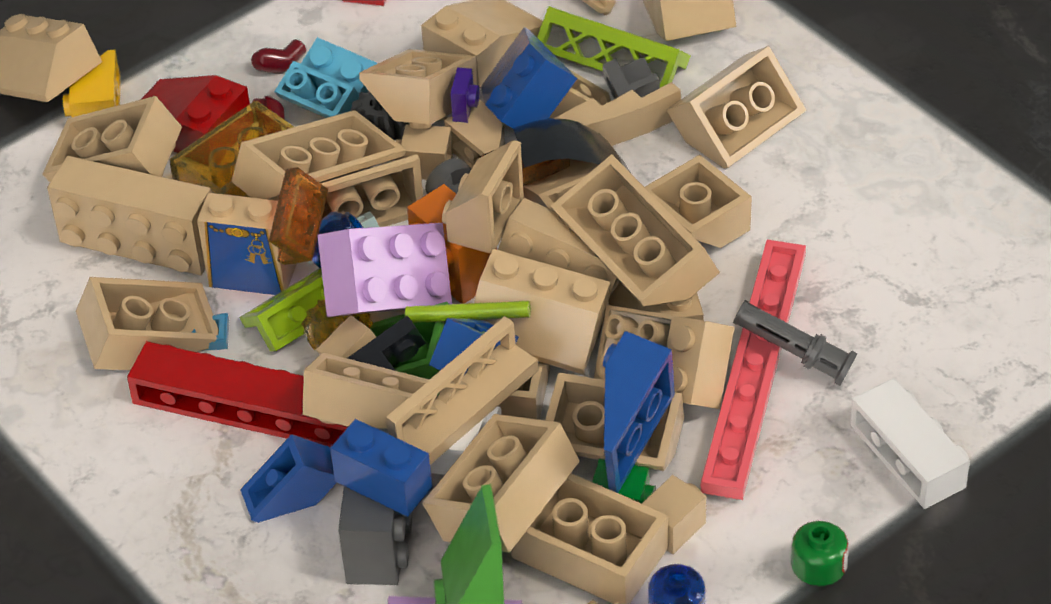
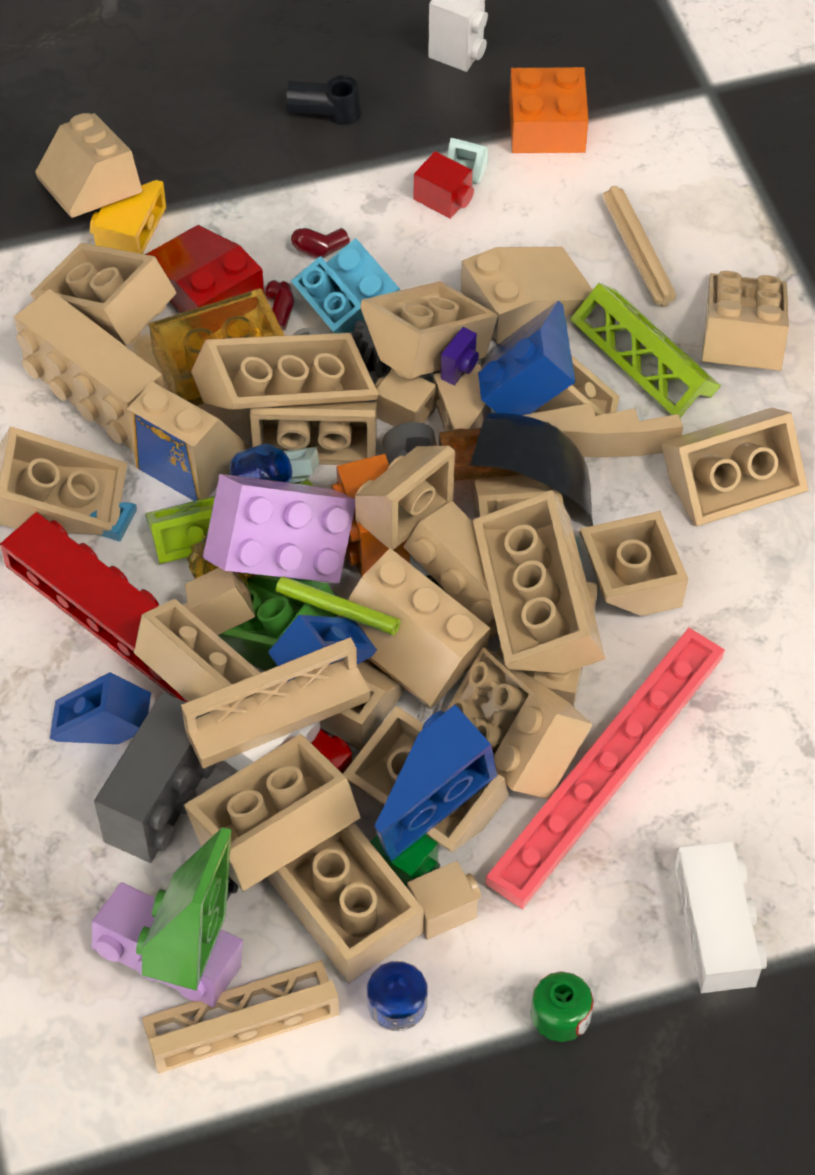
camera: 20 degrees right, 10 degrees up
(298, 217) = (222, 439): clear orange bracket -> none
(381, 467) = (158, 753): blue brick -> none
(392, 346) = (237, 618): black slope -> none
(632, 76) = (645, 393): dark grey panel -> none
(812, 350) = (670, 773): dark grey pin -> none

